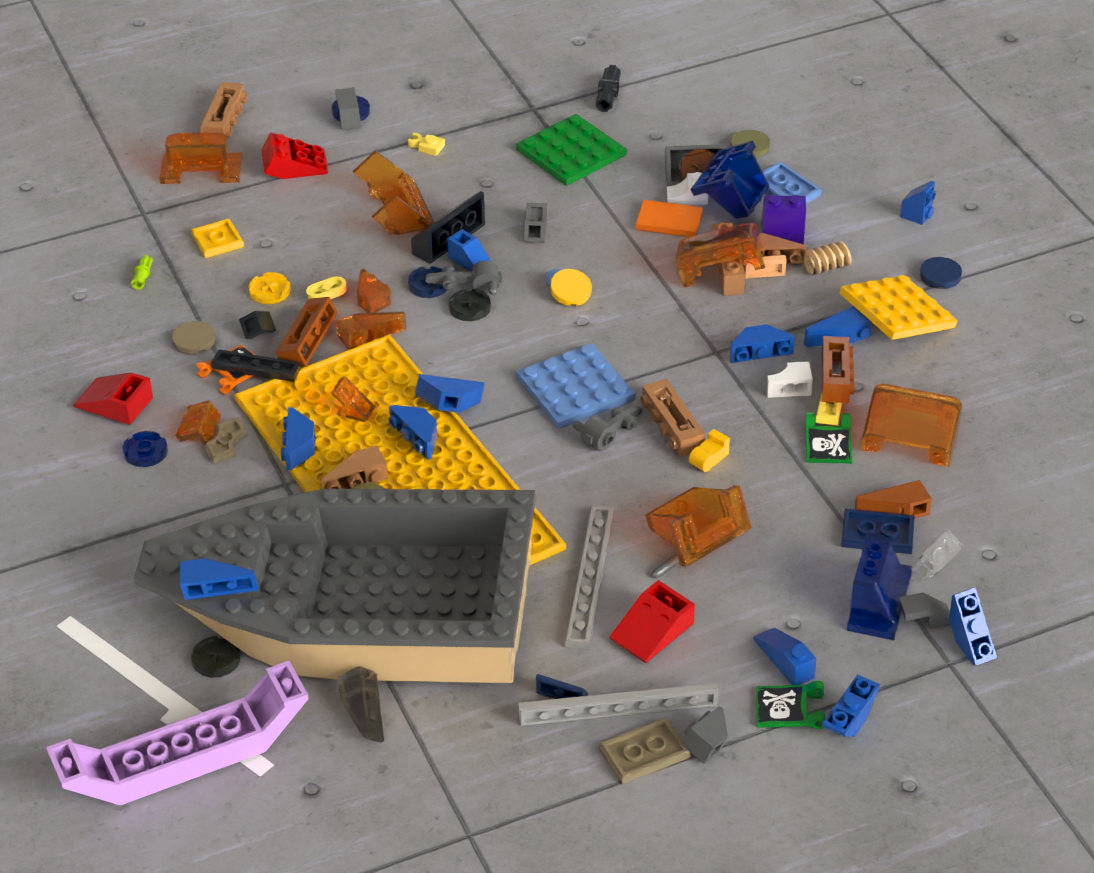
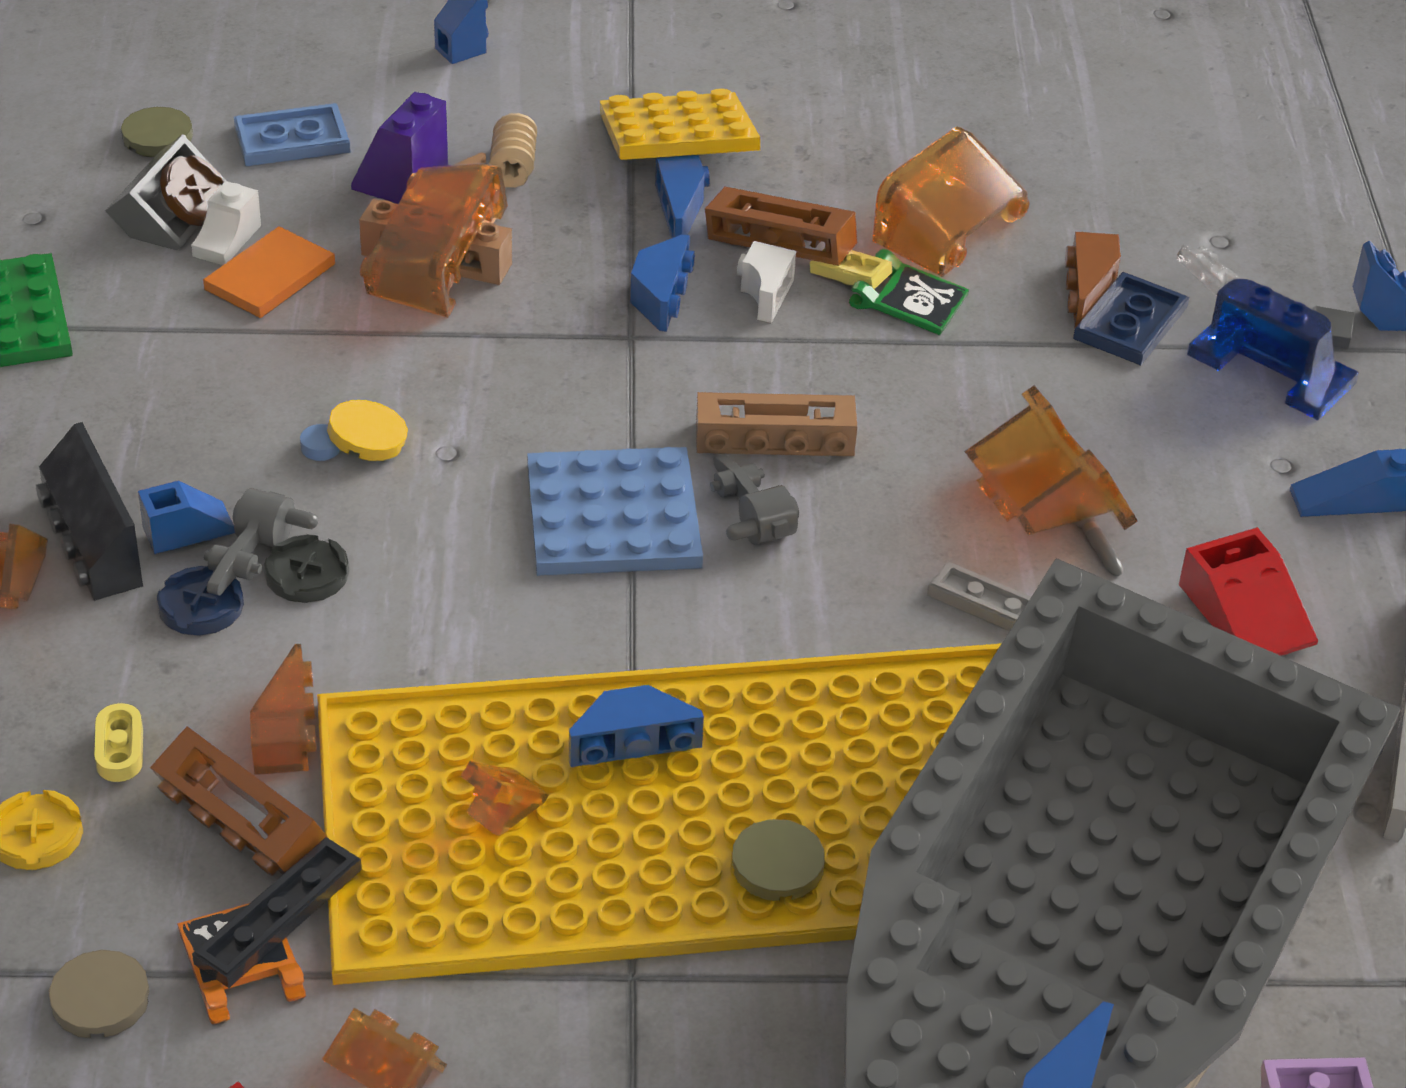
camera: 70 degrees left, 0 degrees up
(223, 444) = (468, 1041): dark tan tile -> none
(257, 323) = (148, 876): black panel -> none
(298, 438) = (552, 901): blue slope -> none
(359, 468) = (696, 844): medium nougat slope -> none
(361, 699) = (1308, 1024): clear smoke slope -> none
(372, 293) = (179, 681): clear orange slope -> none
(449, 393) = (559, 658): blue slope -> none
(535, 222) = (147, 417): dark grey slope -> none
(710, 451) = (878, 414): yellow leg -> none
(733, 180) = (260, 157): clear blue windscreen -> none
(940, 272) = (613, 71): dark blue tile -> none

